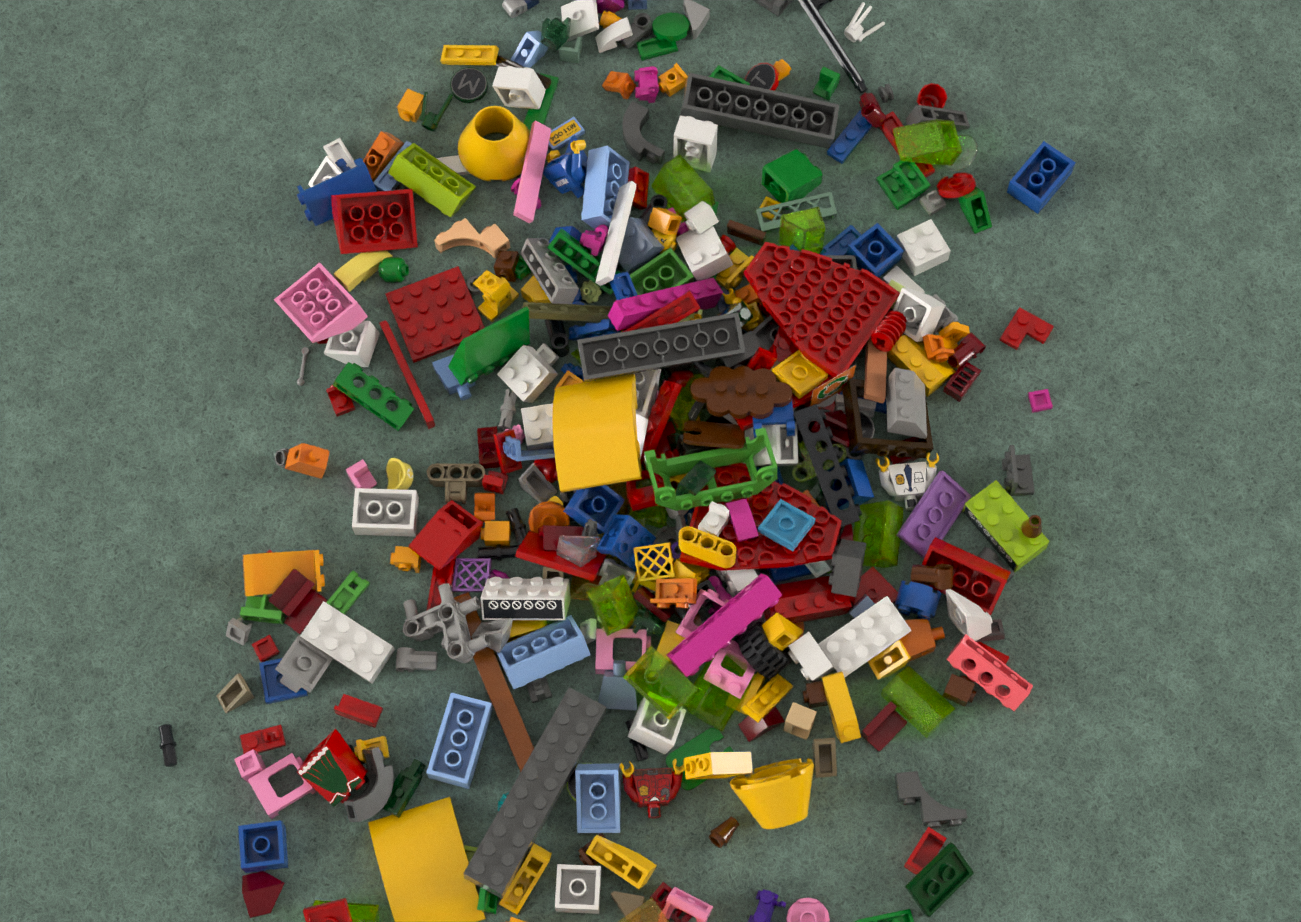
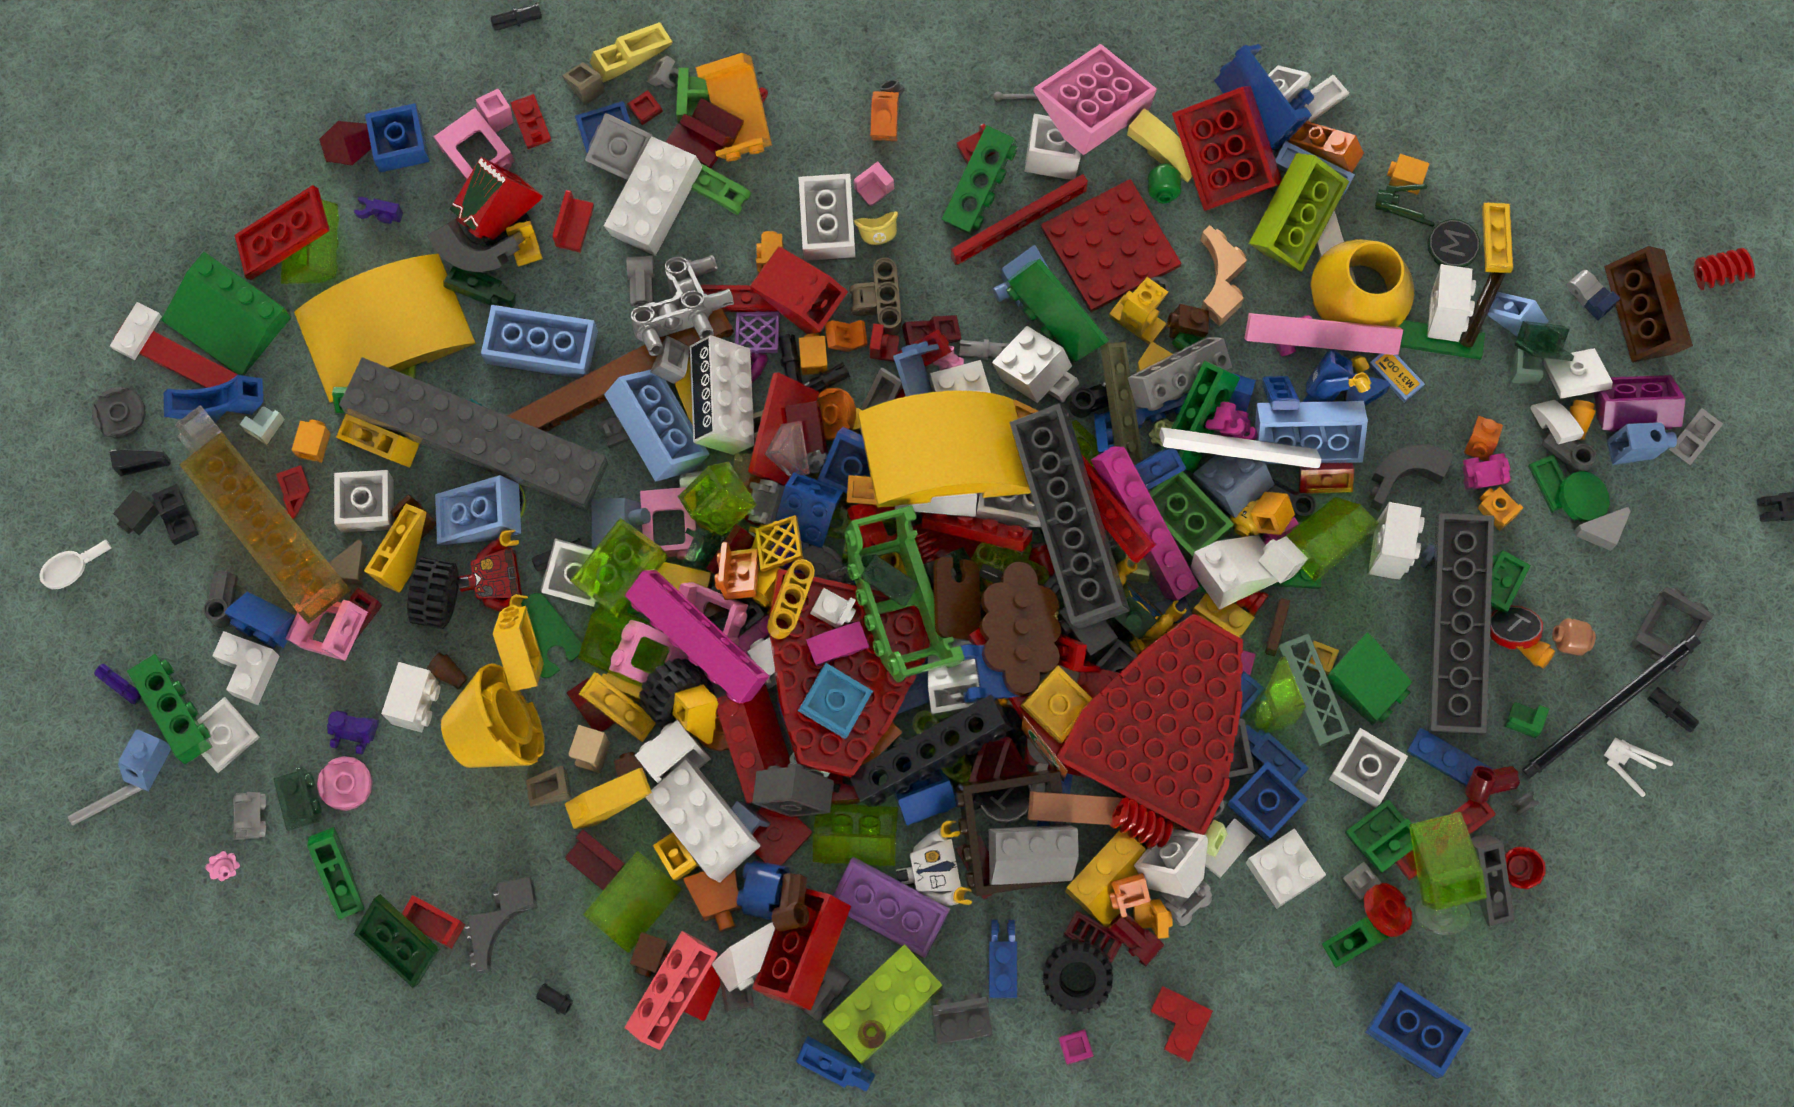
camera: 85 degrees right, 5 degrees up
(215, 654) = (630, 51): none -> light yellow slope
(325, 863) = (383, 210): none -> dark purple plate
(574, 205) = (1280, 393): none -> blue tile
(618, 496) = (860, 490): none -> light orange bracket
(663, 833) = (432, 593): none -> black tyre
(747, 856) = (411, 697): none -> white brick
(771, 47) = (1574, 637): none -> nougat head
(855, 185) = (1368, 768): none -> white brick
(976, 443) = (1002, 963): none -> blue hinge
(988, 764) = (554, 999): none -> black pin
(1003, 379) = (1078, 1000): none -> black tyre
(1047, 565) = (834, 1065): none -> blue hinge

